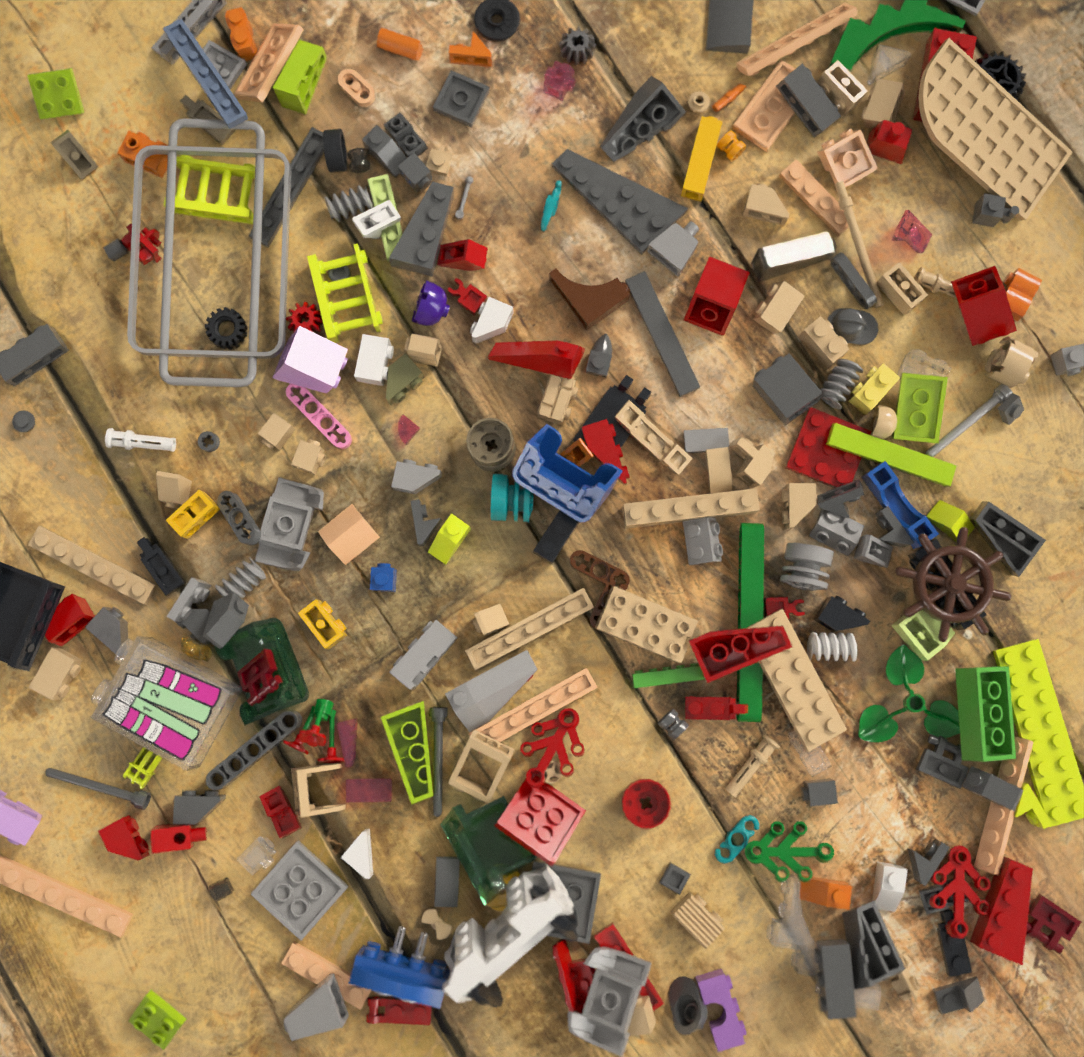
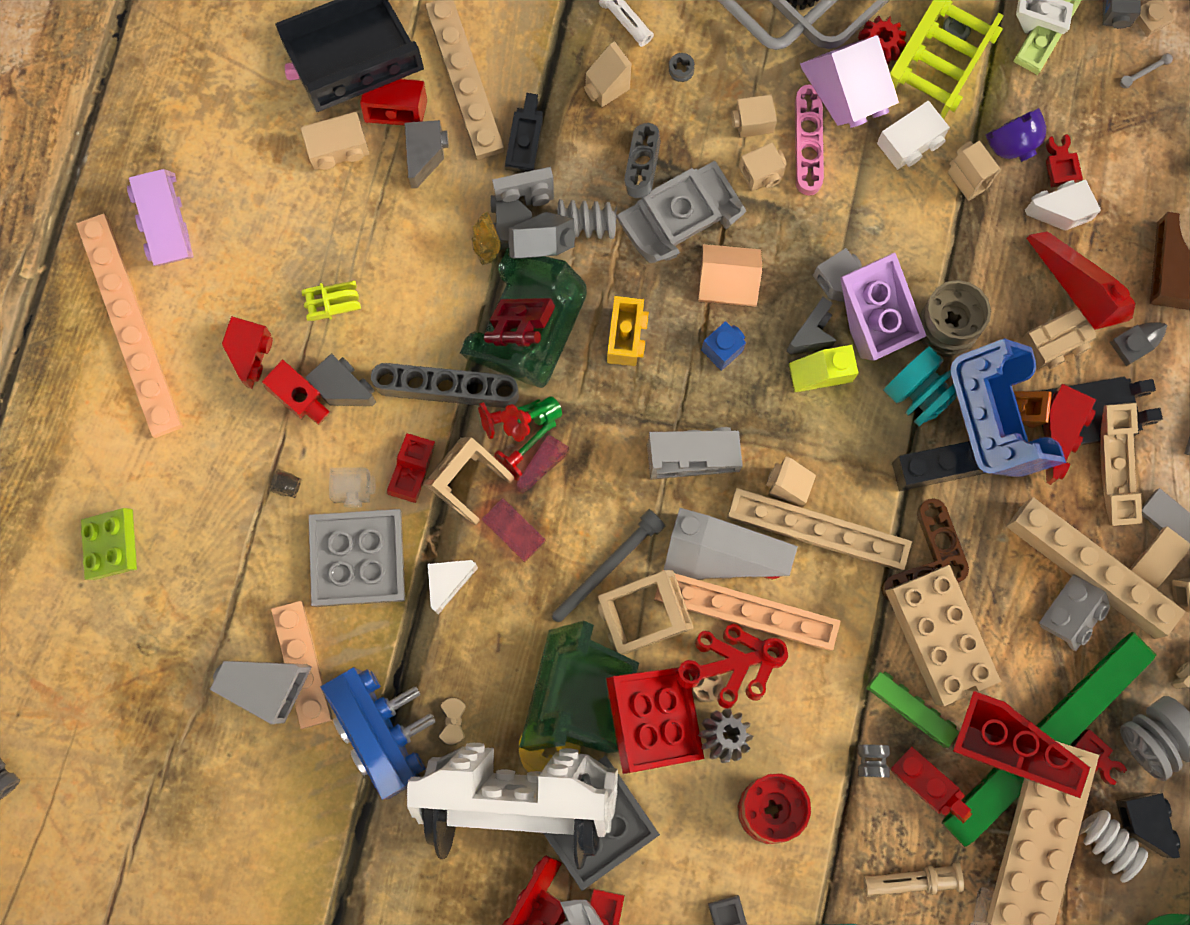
camera: 40 degrees right, 5 degrees down
(139, 799) = (295, 327): dark grey piece -> none
(165, 701) = (410, 260): brick -> none
(193, 514) = (604, 116): yellow brick -> none
(397, 1011) = (336, 769): red plate -> none
(401, 378) = (925, 178): olive slope -> none
(407, 429) = (881, 231): clear pink tile -> none
(409, 744) = (595, 525): lime wedge -> none
(423, 236) = (1074, 66): dark grey wedge -> none
(446, 882) = (502, 690): dark grey slope -> none
(447, 478) = (880, 308): none -> lavender slope
(463, 255) = (1095, 120): red slope -> none
(592, 794) = (731, 724): none -> flat silver gear

